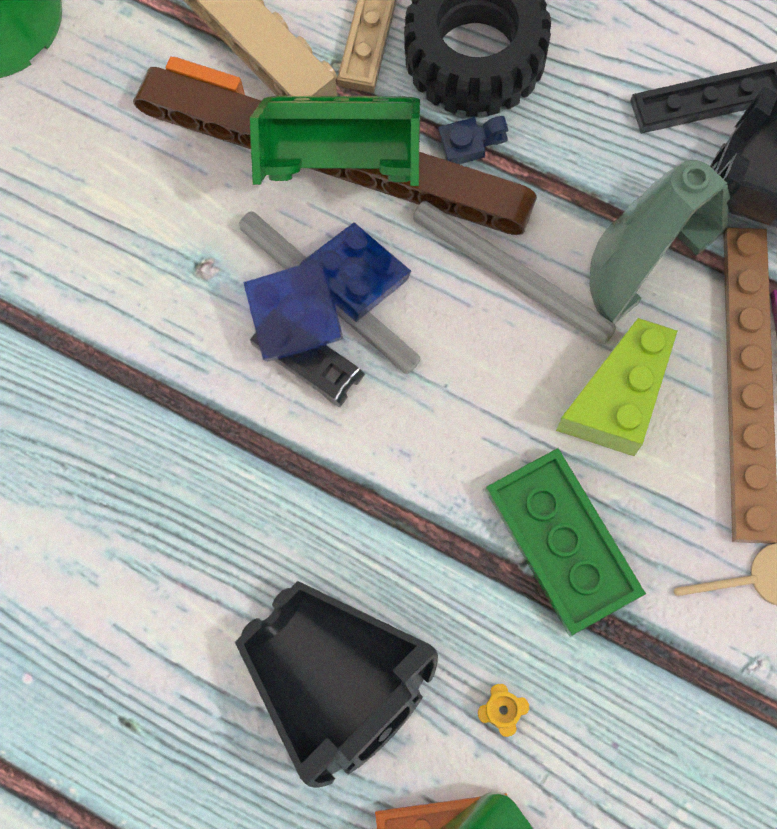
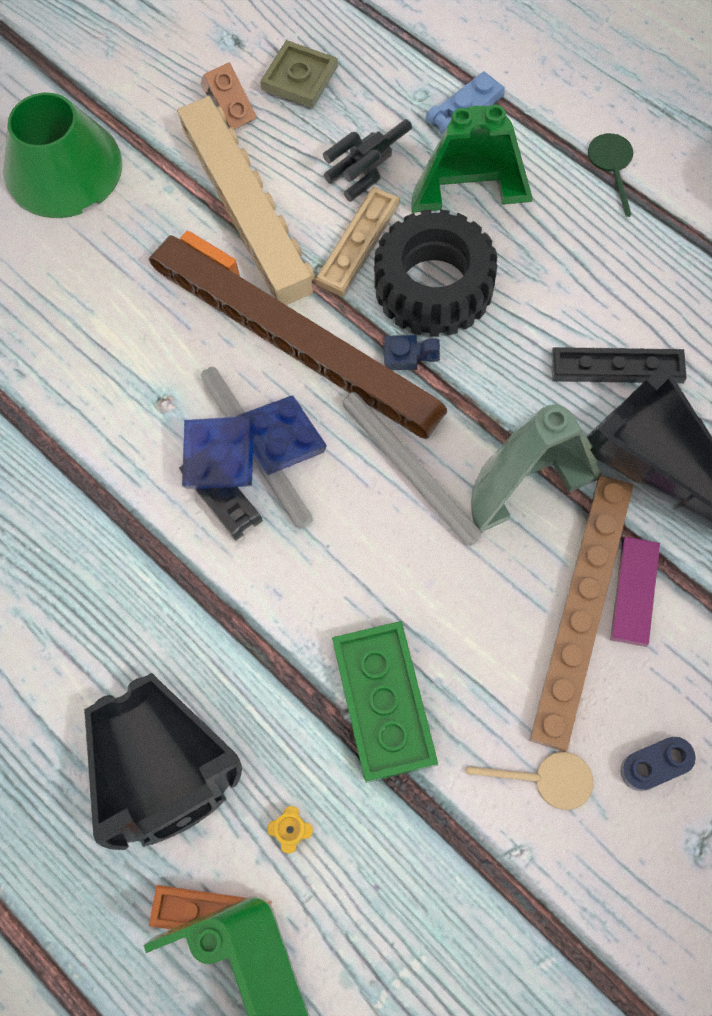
camera: 15 degrees right, 5 degrees down
(336, 134) = (291, 319): green windscreen -> none
(623, 392) = (469, 587): lime wedge -> none

